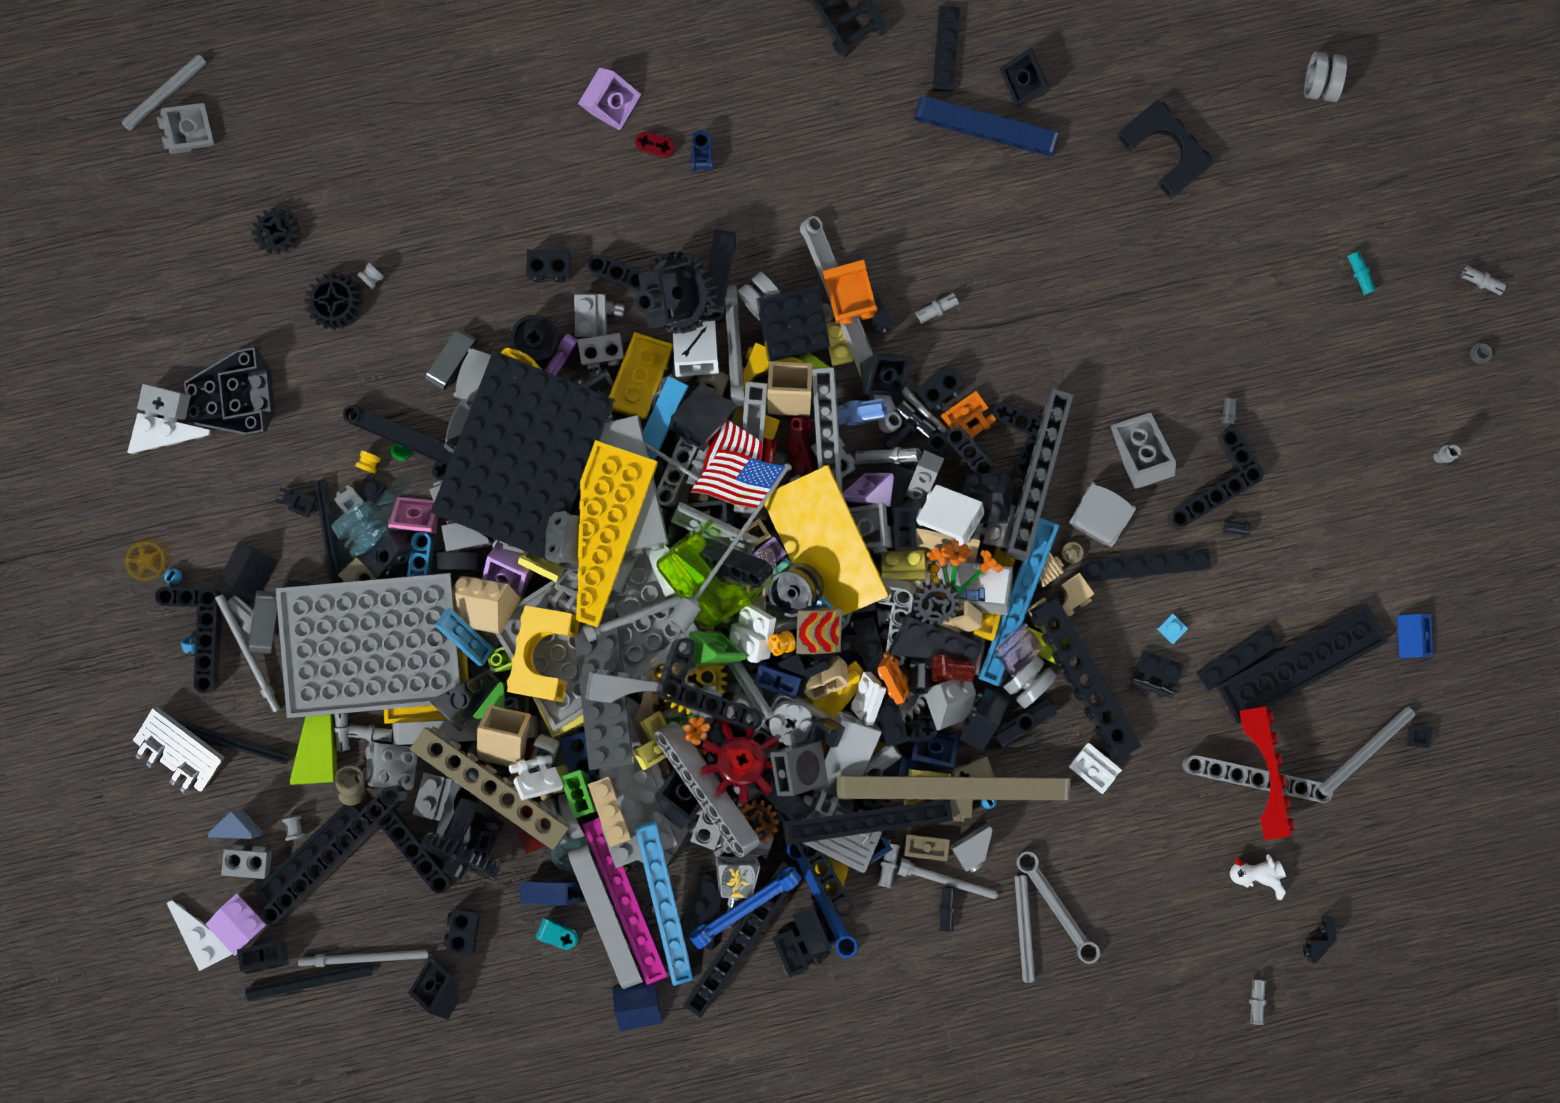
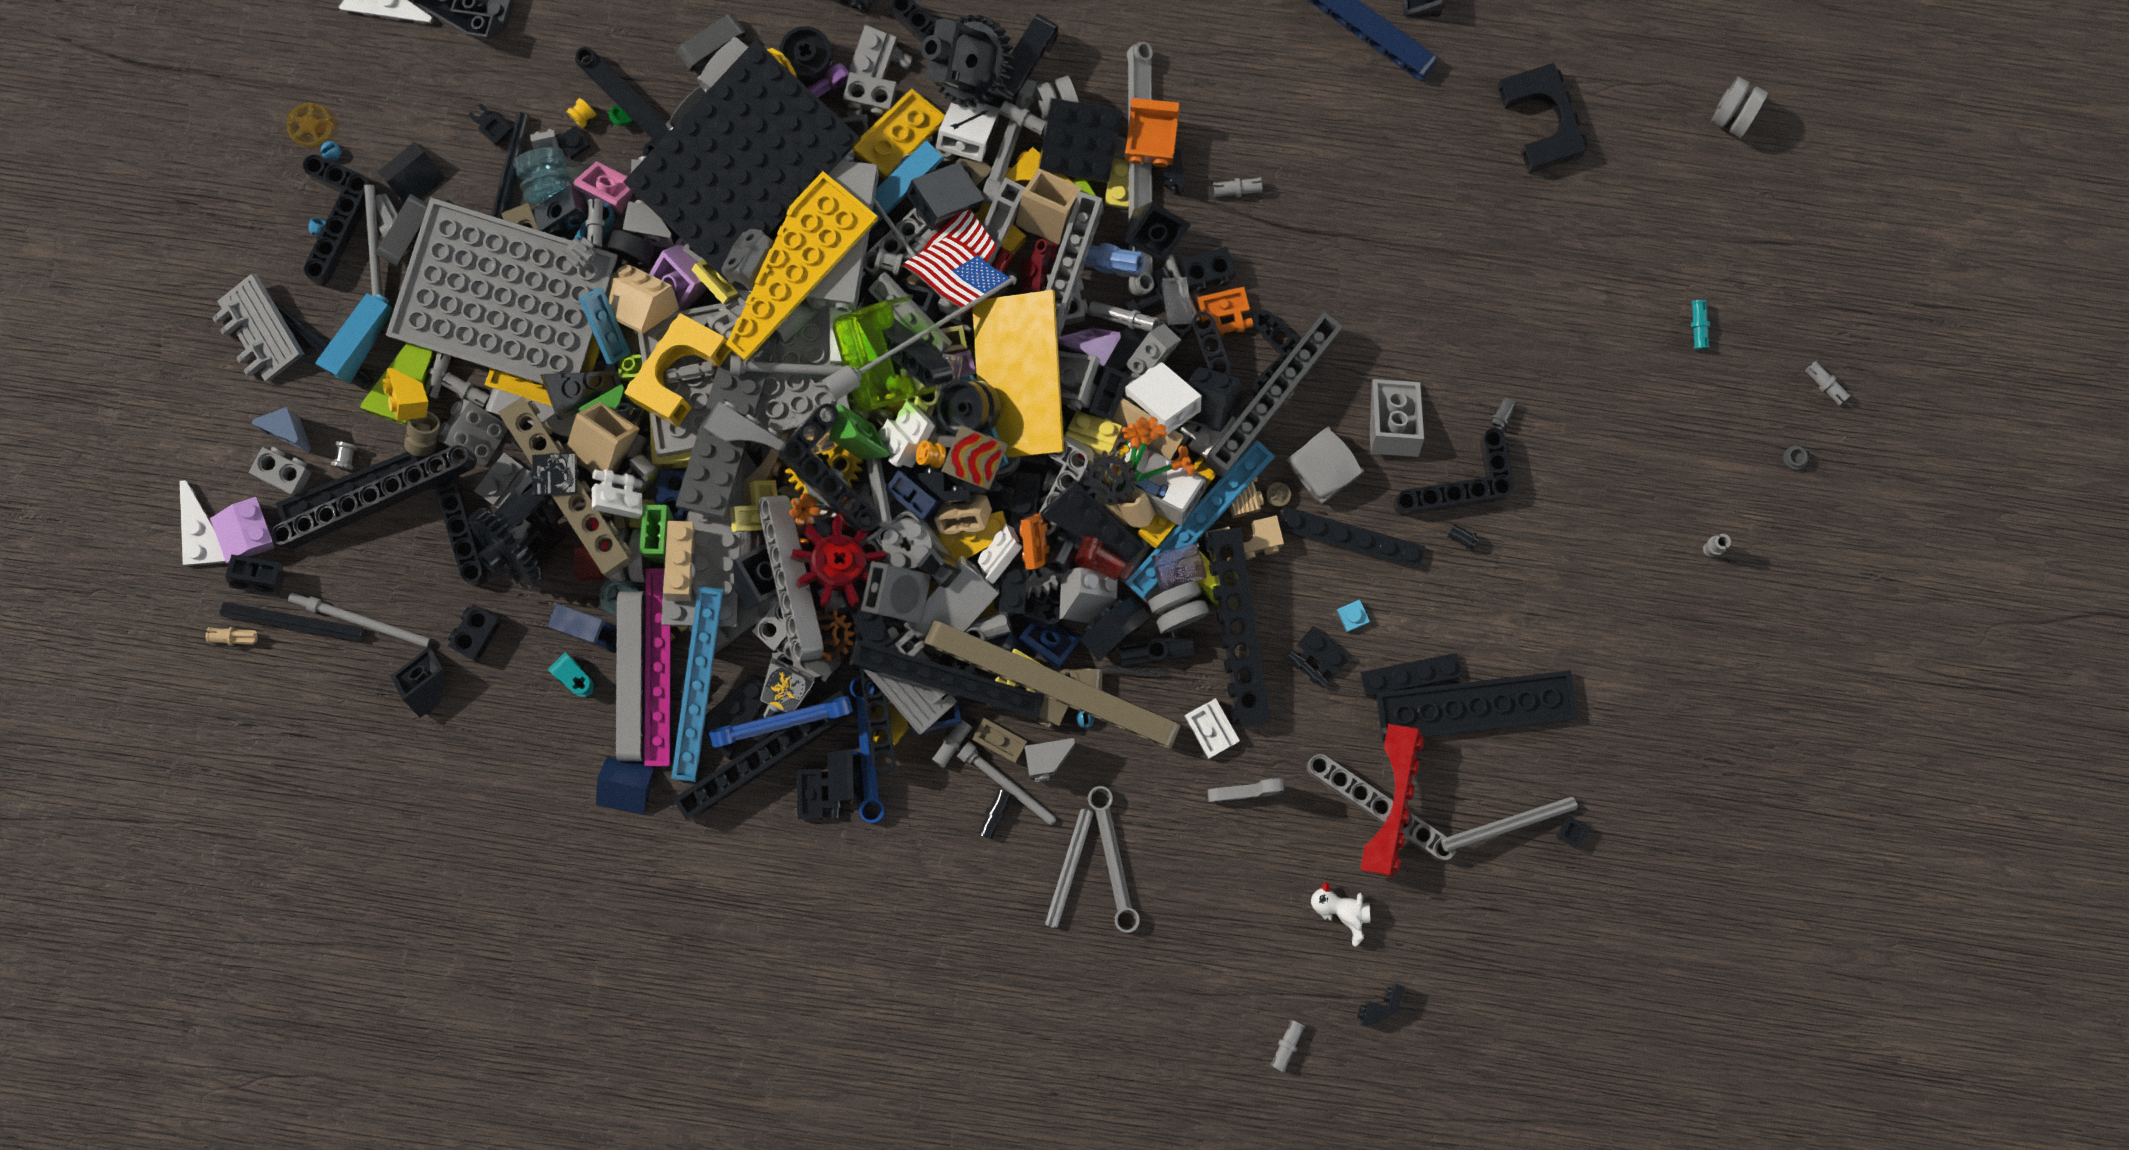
camera: 15 degrees right, 5 degrees down
(262, 729) = (355, 338): none -> dark azure slope
(264, 1013) = (231, 636): none -> tan axle
(325, 761) = (406, 396): none -> yellow slope
(419, 585) = (580, 252): none -> light grey gear
(420, 554) = (595, 222): none -> light grey pin
(478, 783) = (554, 474): none -> piece
(553, 650) = (690, 372): none -> light grey axle
(678, 492) = (888, 261): none -> light grey bush
(738, 322) = (1023, 117): none -> light grey pin
(926, 426) = (1177, 301): none -> clear tile
(1161, 802) = (1262, 789): none -> light grey beam
(1415, 635) = (1610, 724): blue panel -> none

